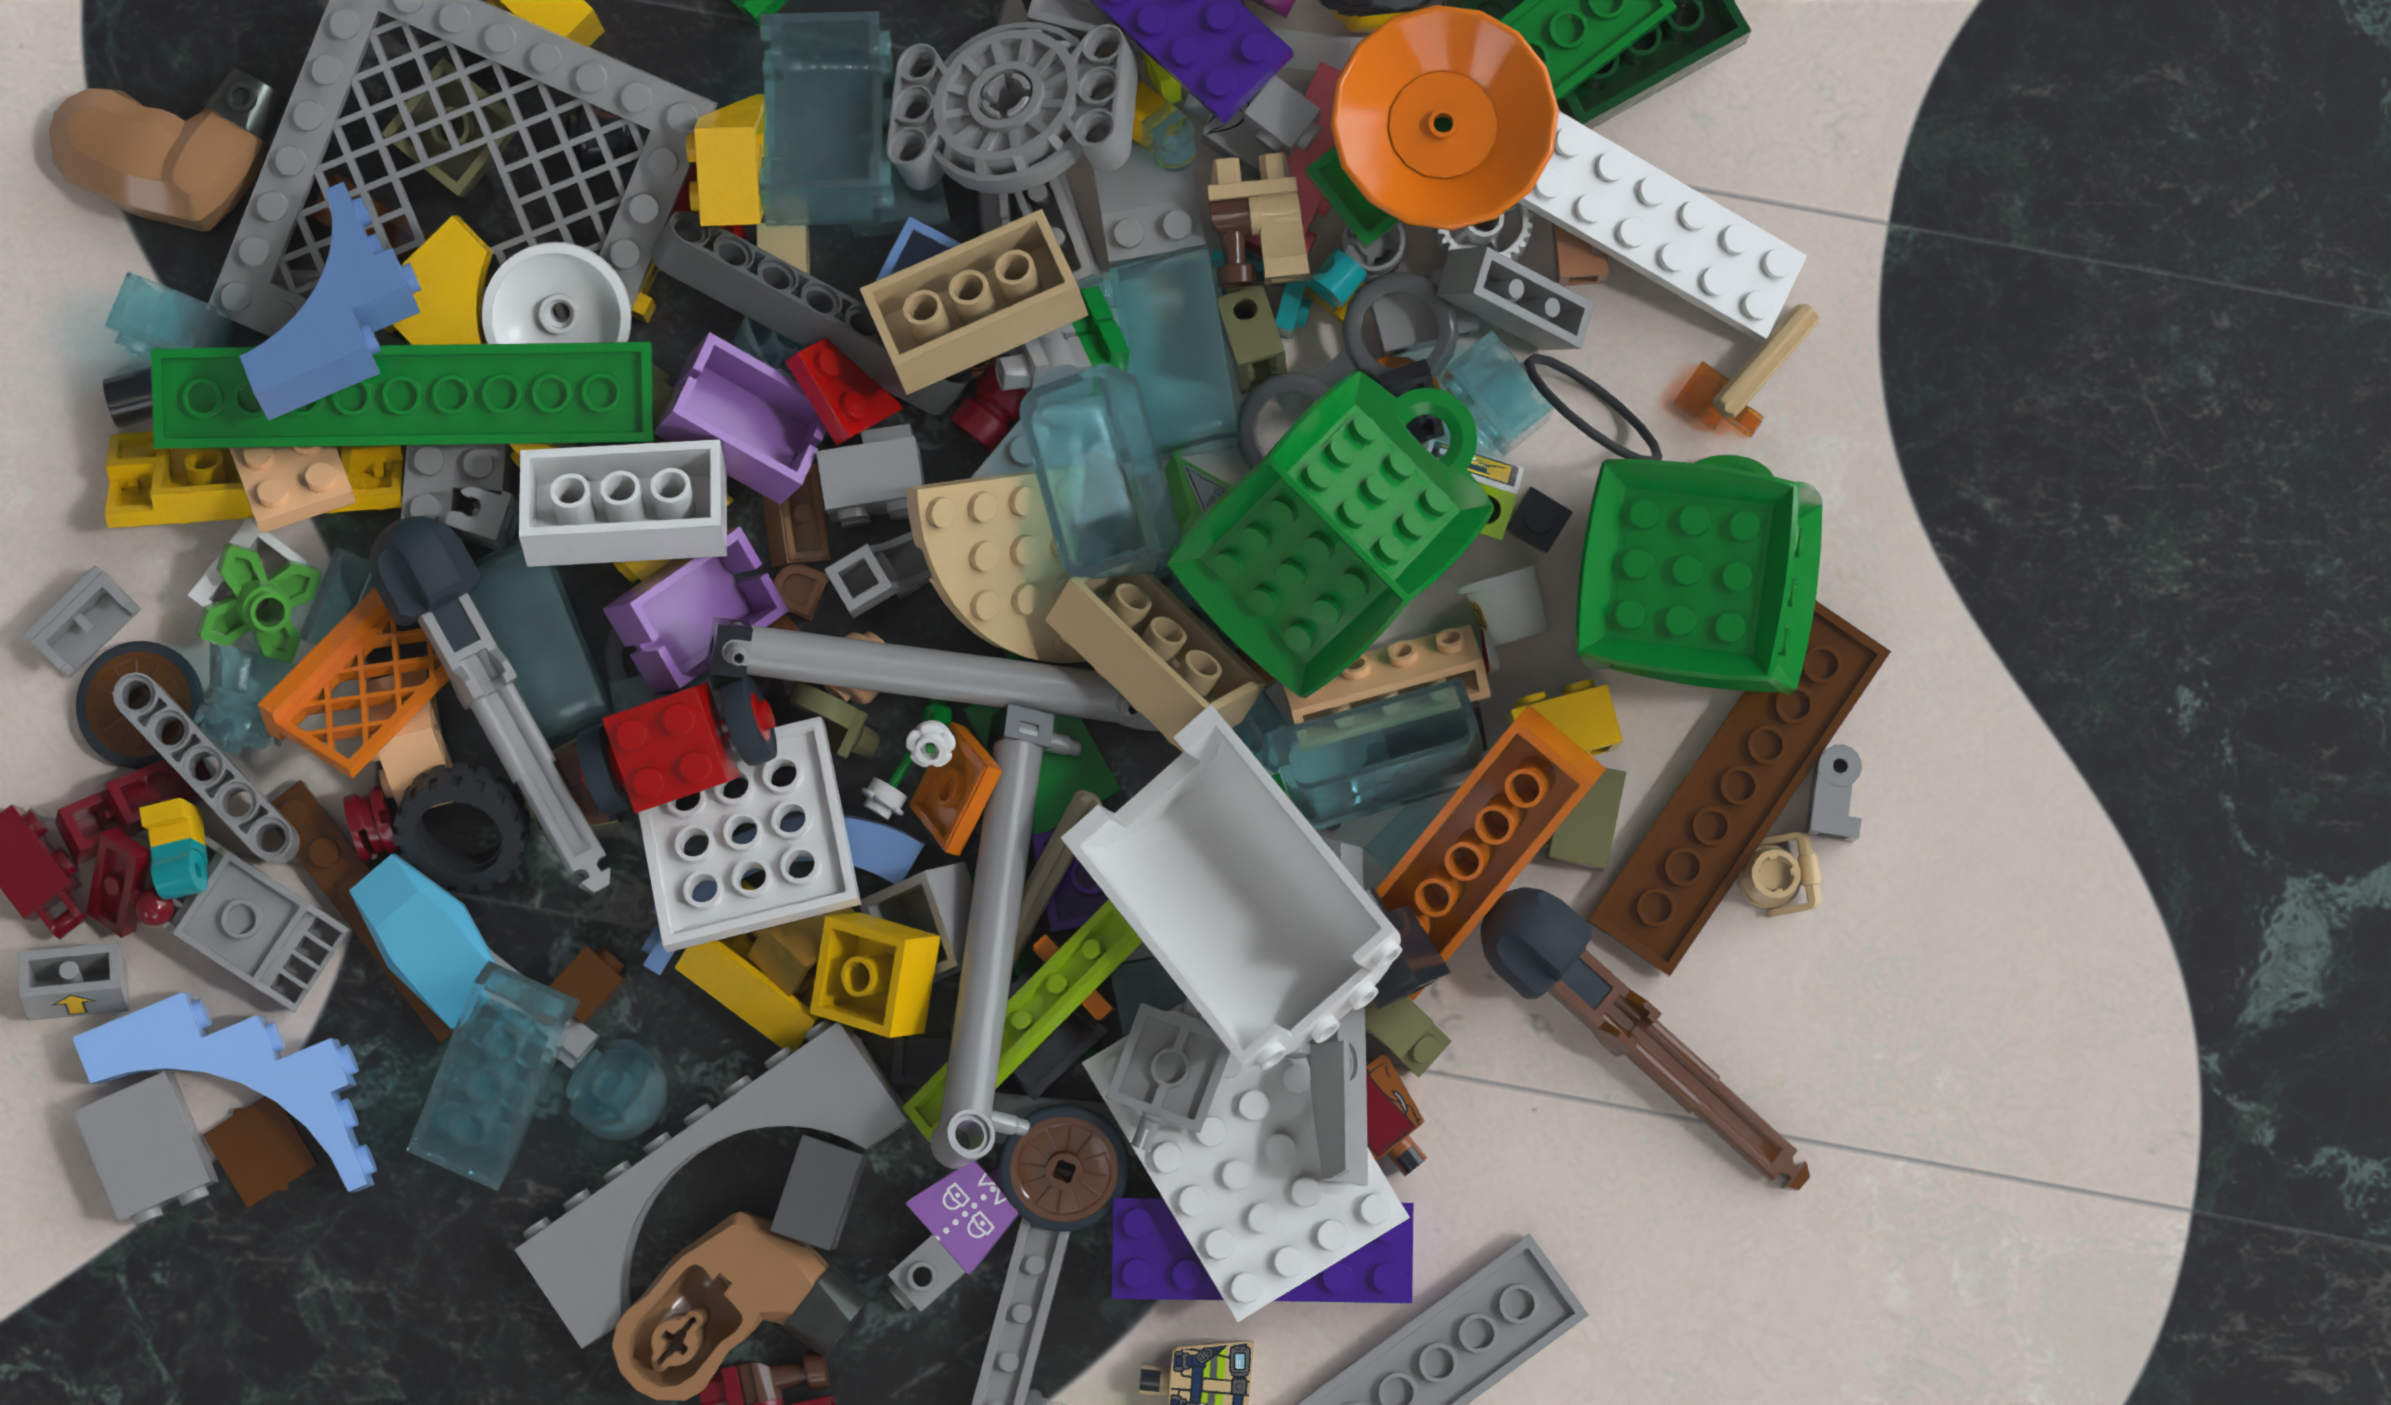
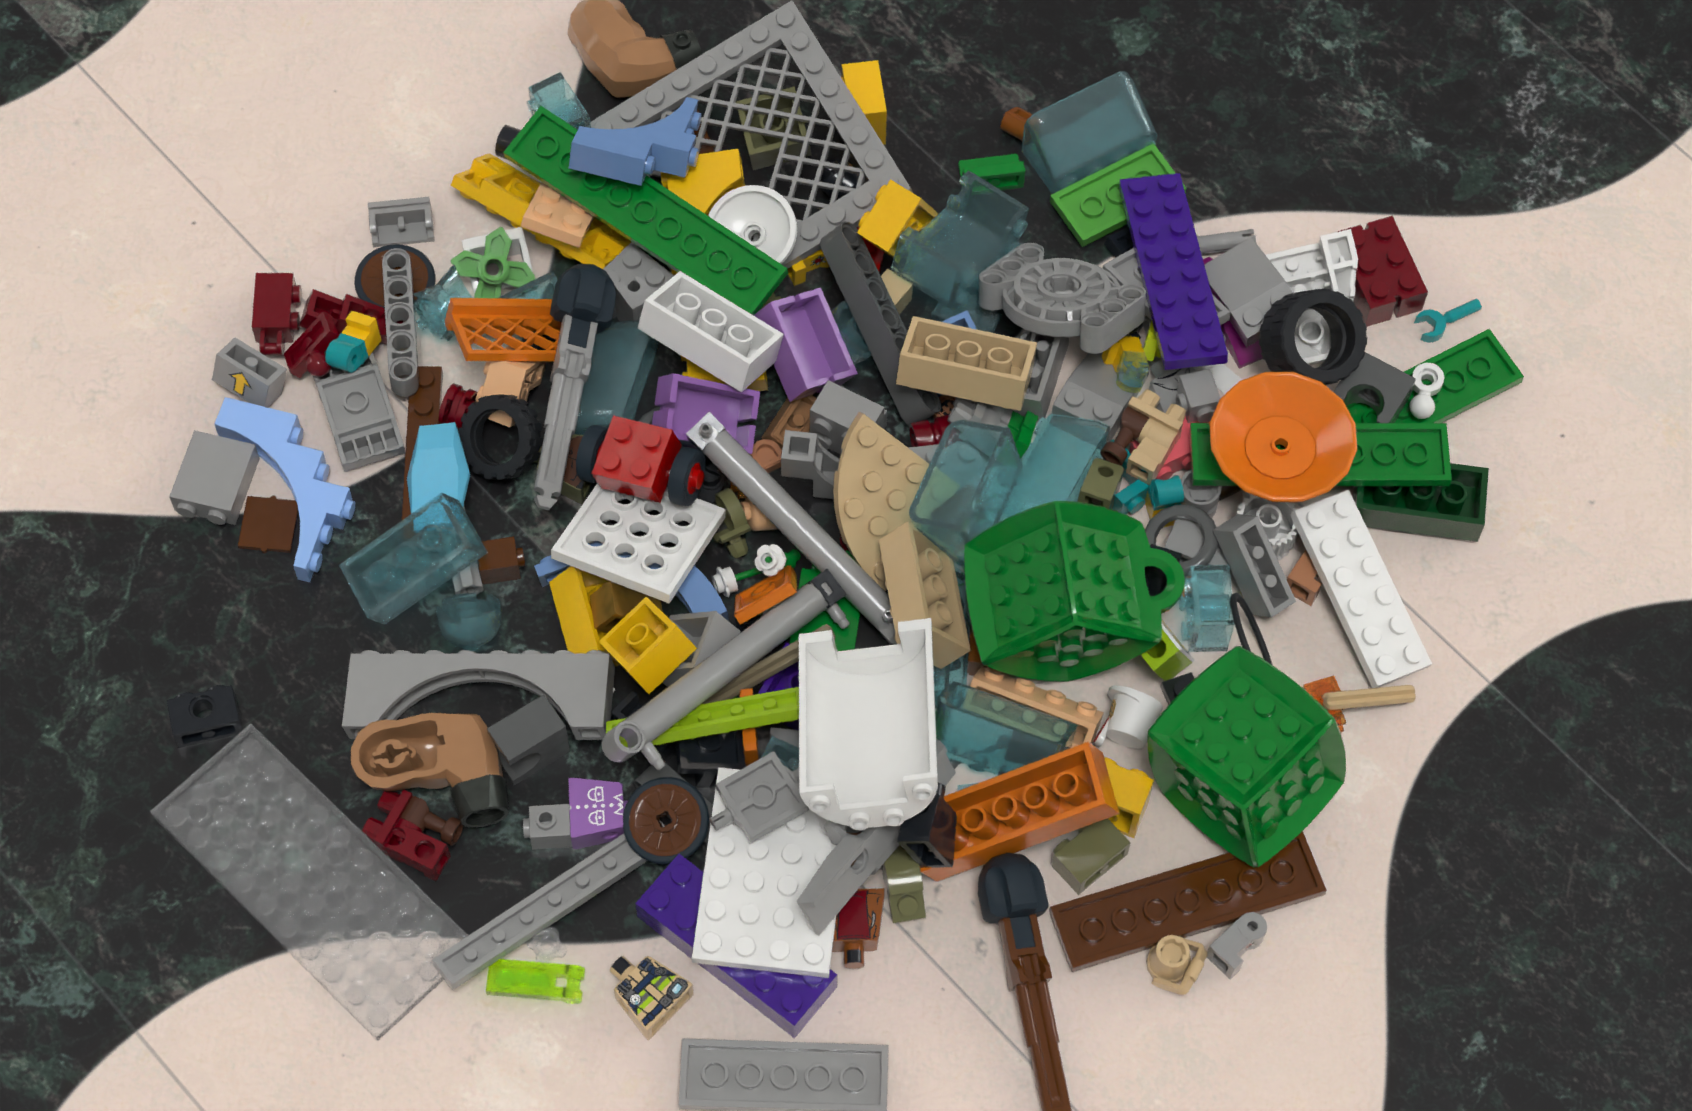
camera: 35 degrees right, 20 degrees down
(840, 391) = (864, 367): red wing -> none

